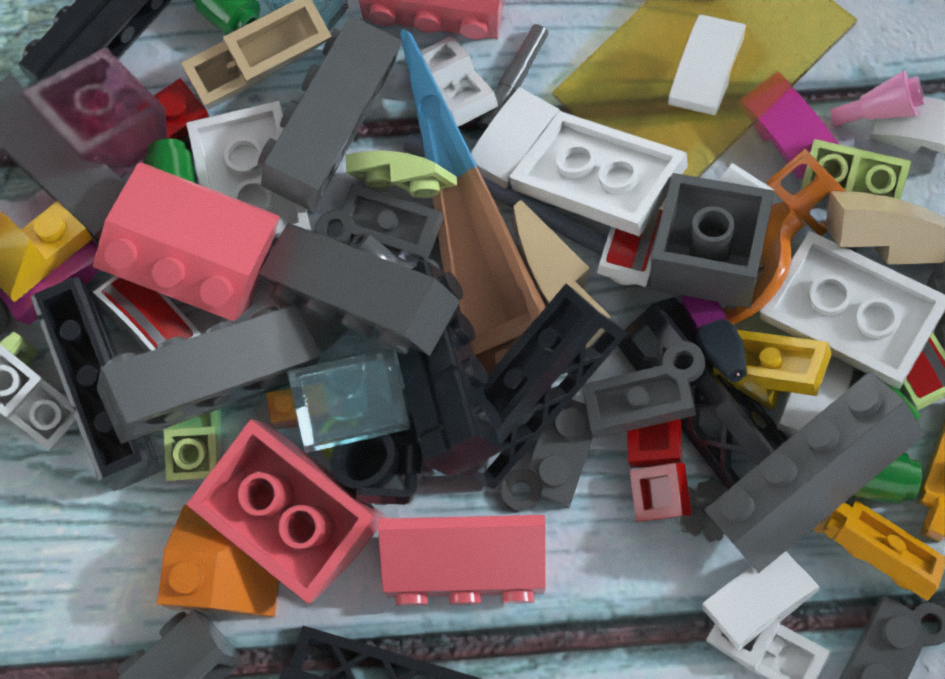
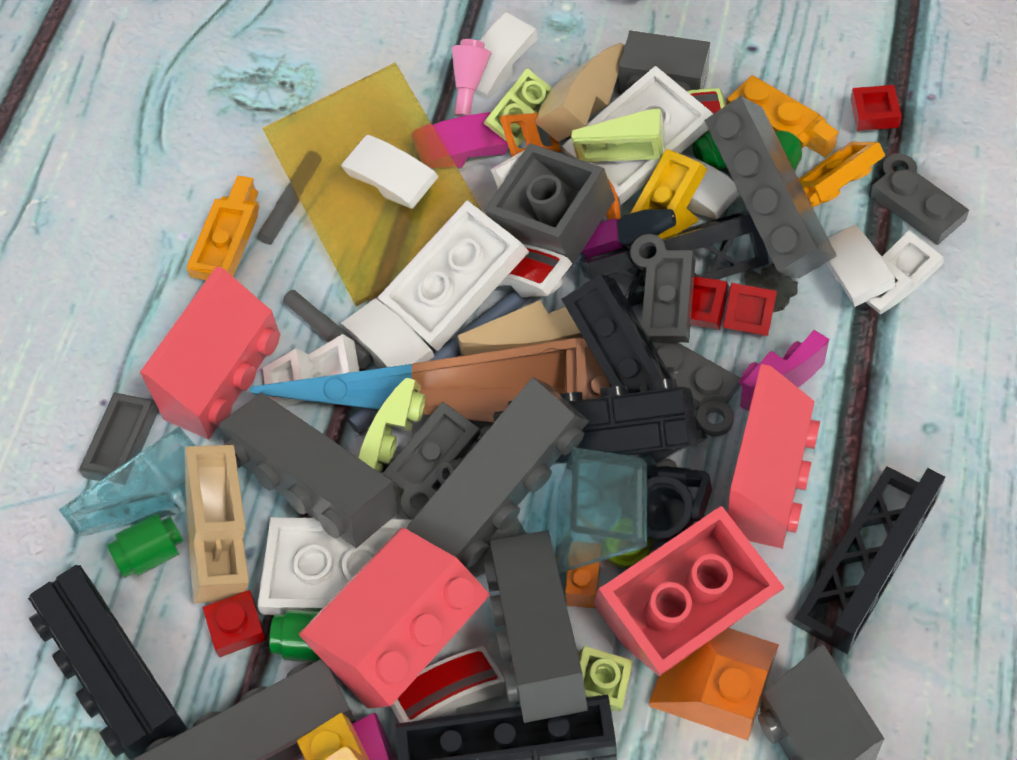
camera: 70 degrees left, 15 degrees down
(100, 110) = (214, 668): clear pink slope -> none
(574, 535) = (798, 365): none -> dark pink slope
(830, 301) = (621, 139): none -> yellowish green slope

